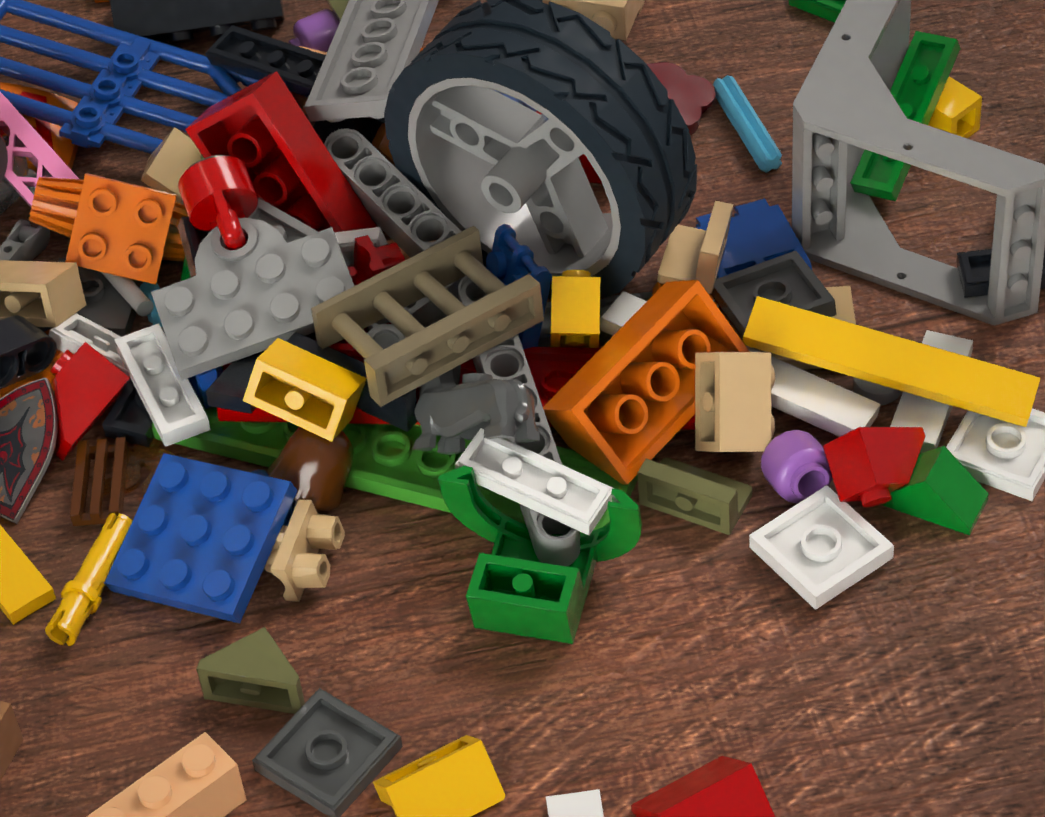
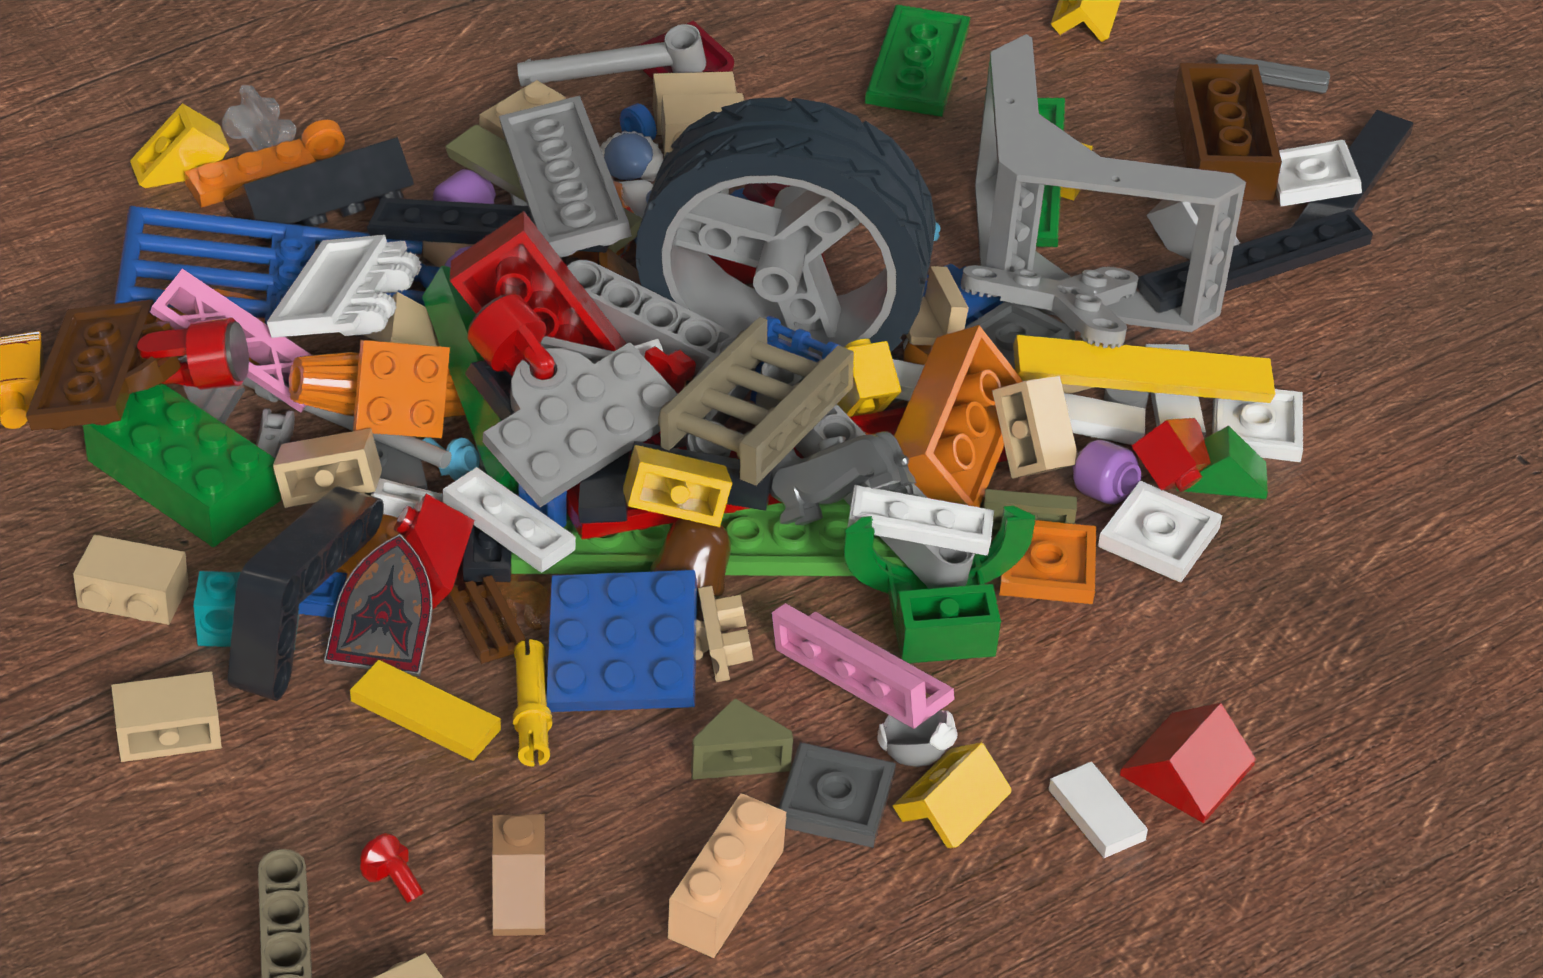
camera: 30 degrees left, 5 degrees down
(122, 118) = (346, 288): none -> white hinge
(411, 629) = (859, 666): none -> bright pink fence
(432, 713) = (919, 745): none -> light grey hair
(683, 552) = (1056, 565): none -> orange plate
(852, 266) = (1075, 300): none -> light grey piece

